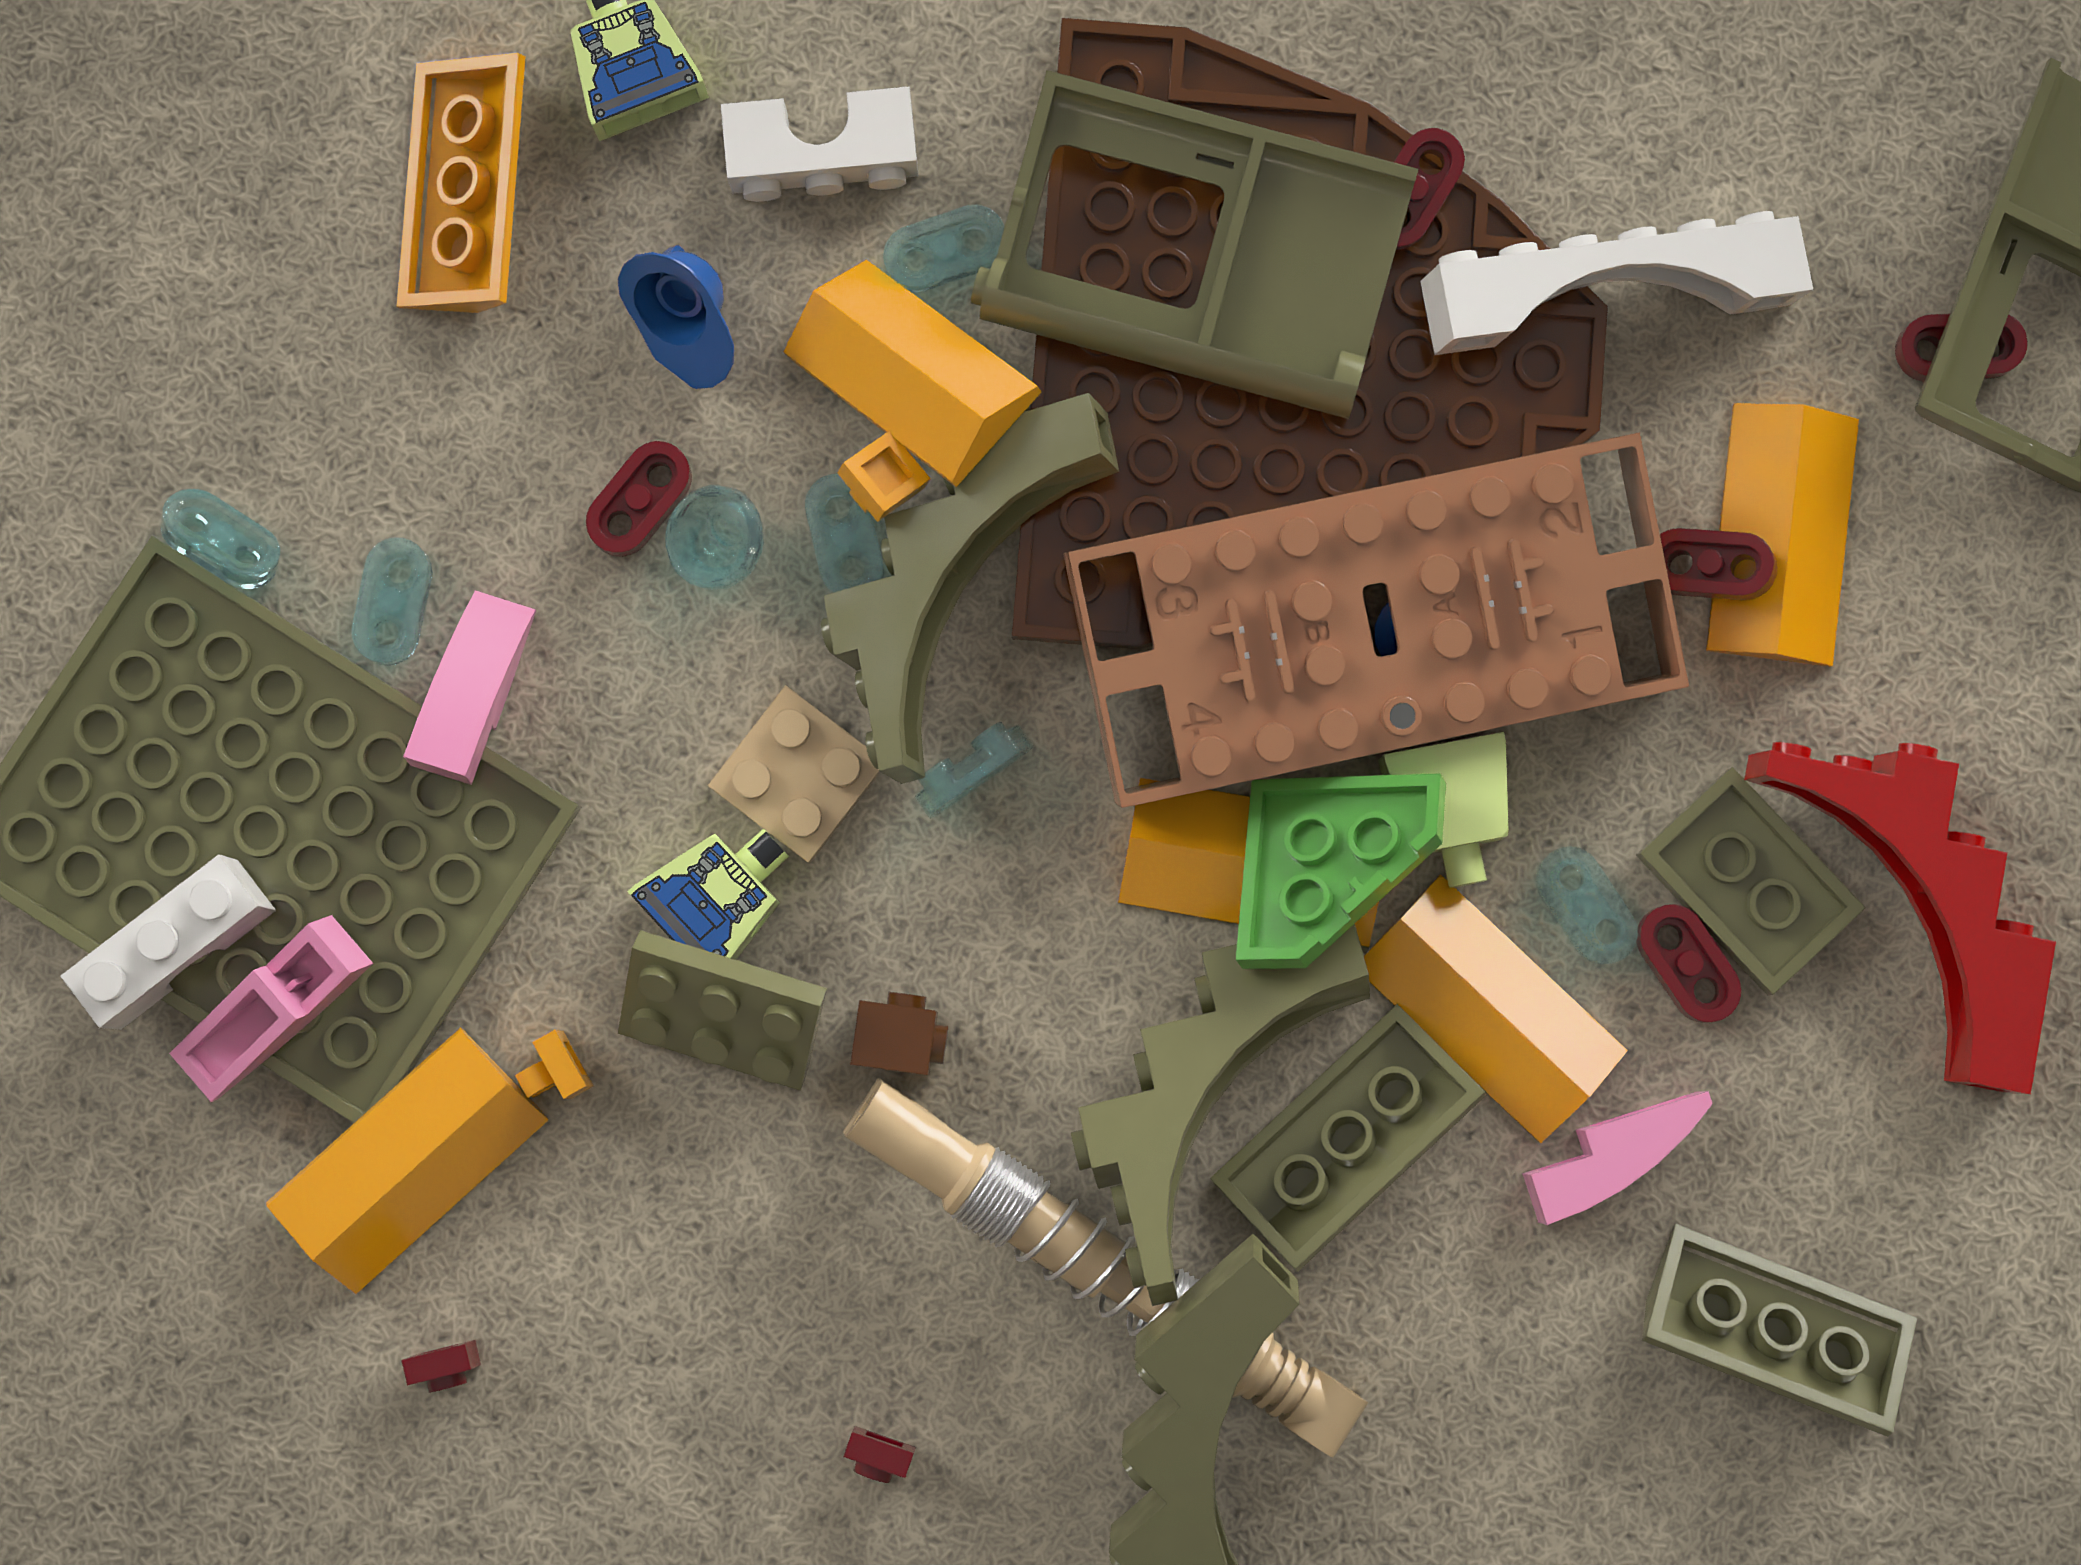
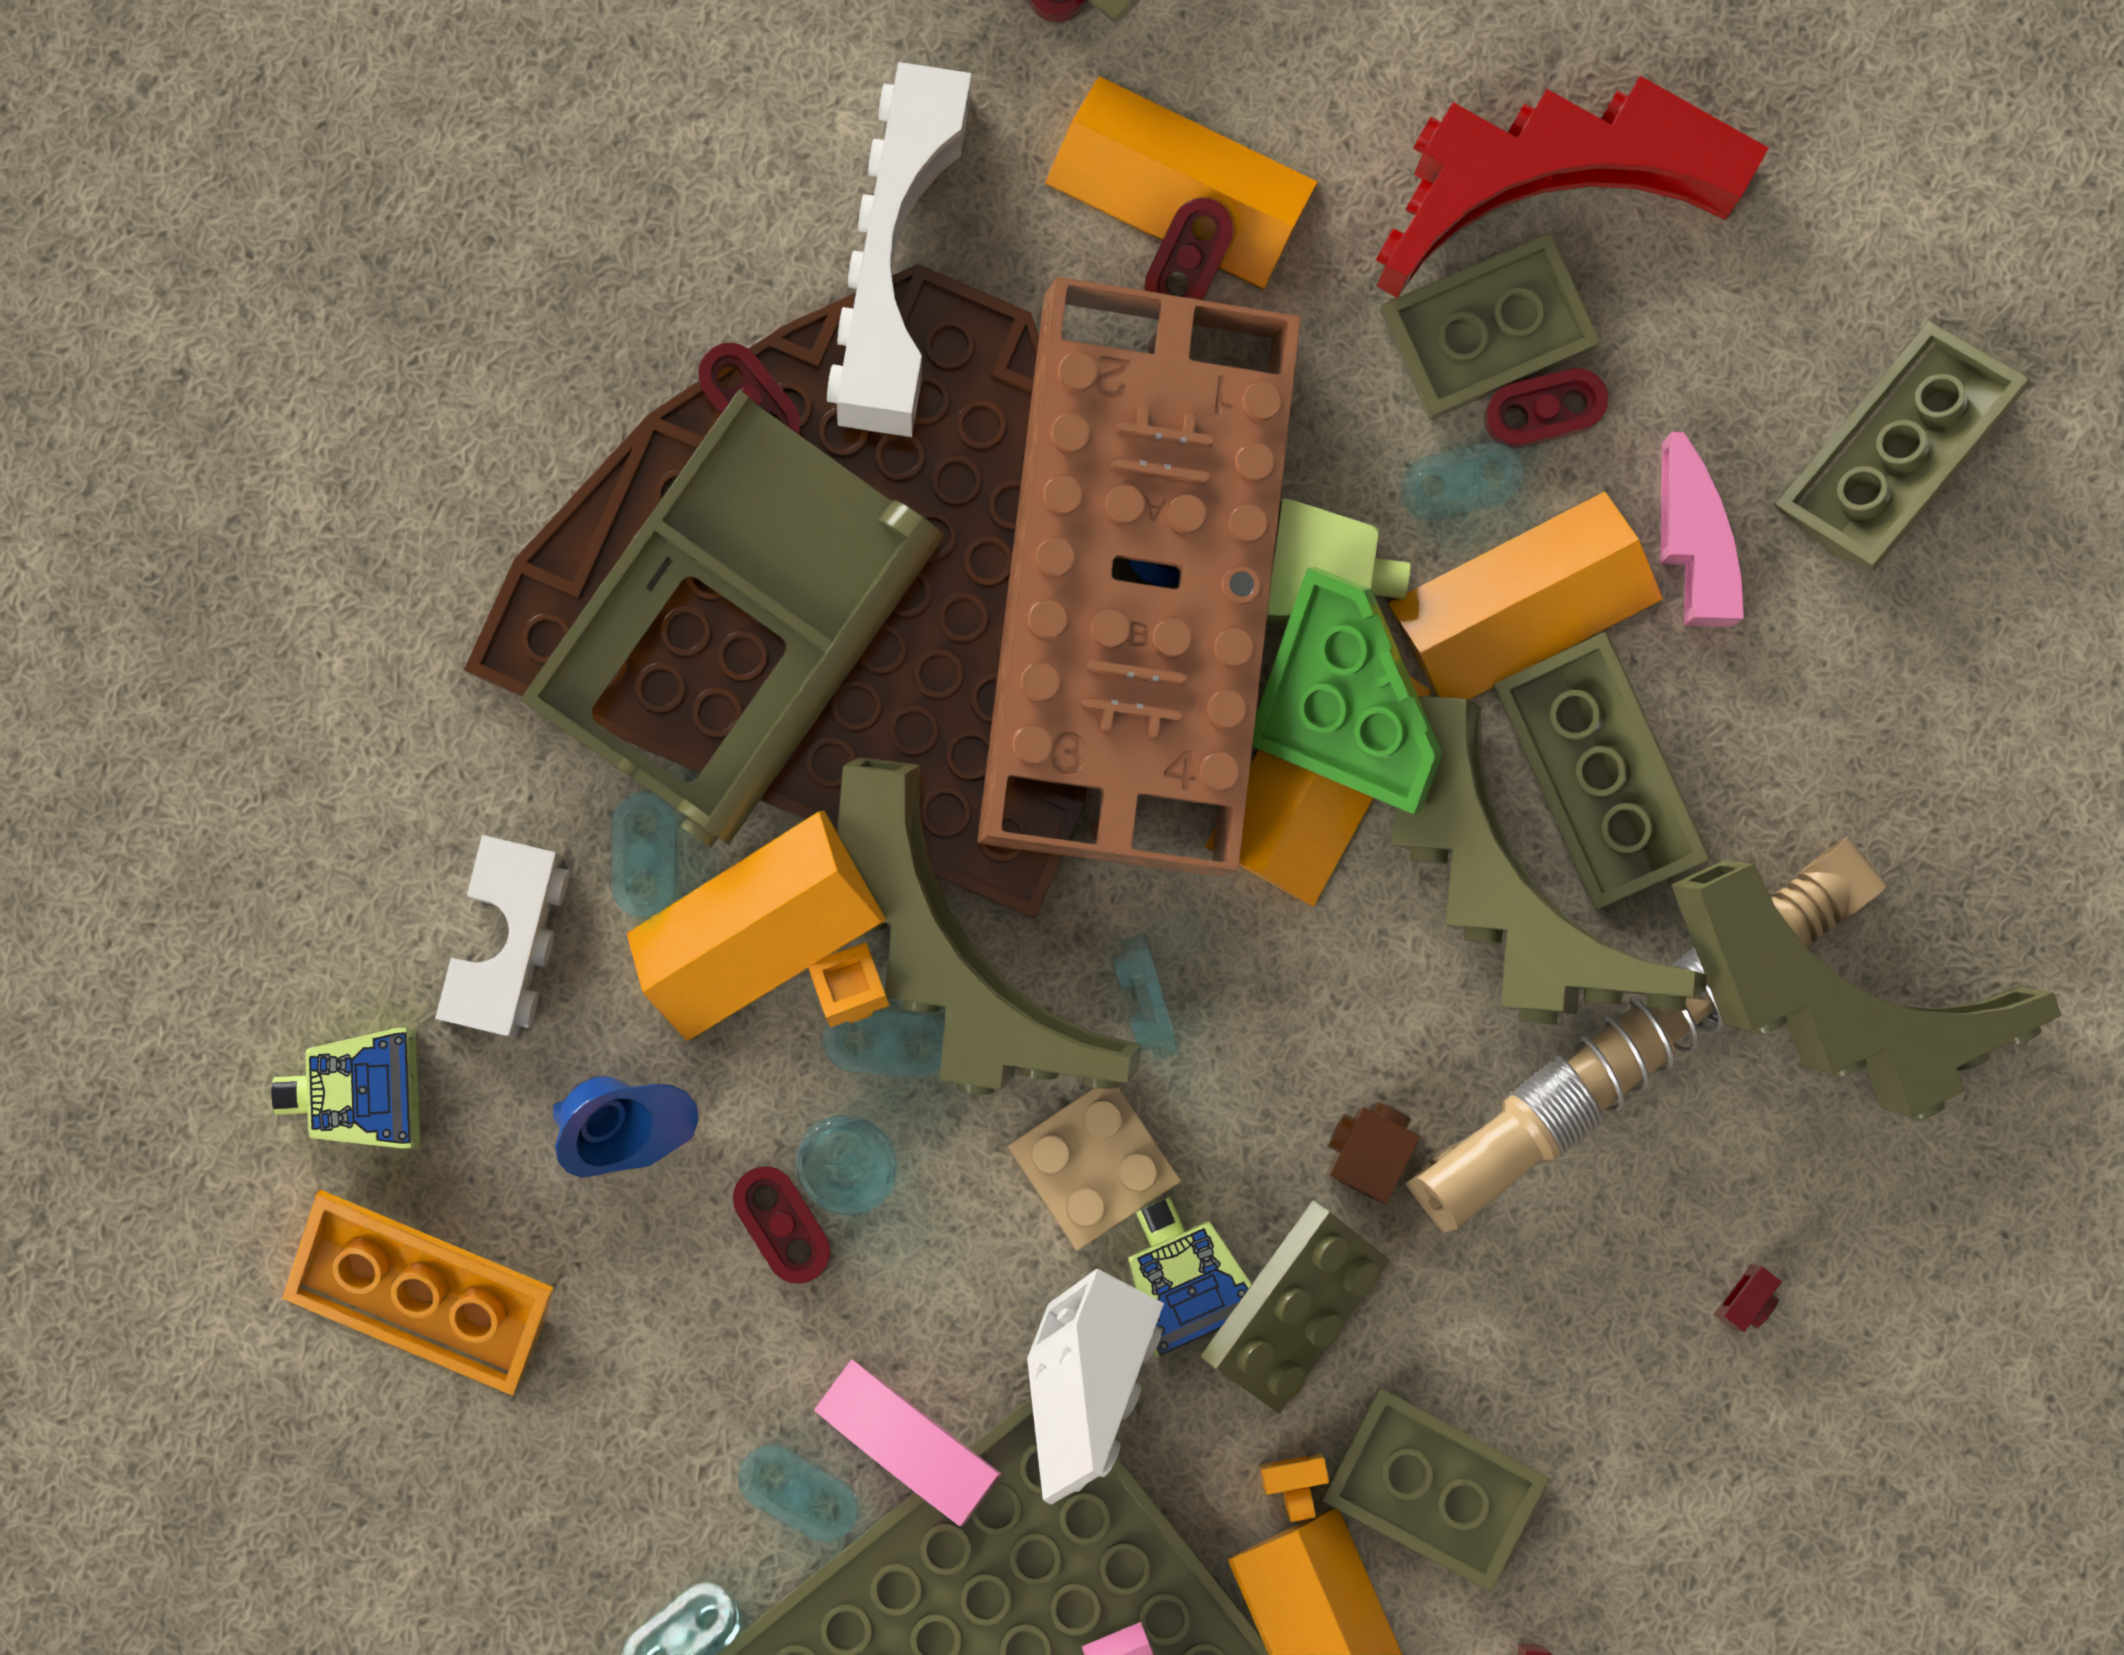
camera: 75 degrees left, 0 degrees up
(583, 827) = (1086, 1377): none -> white slope
(594, 1207) = (1434, 1489): none -> olive plate

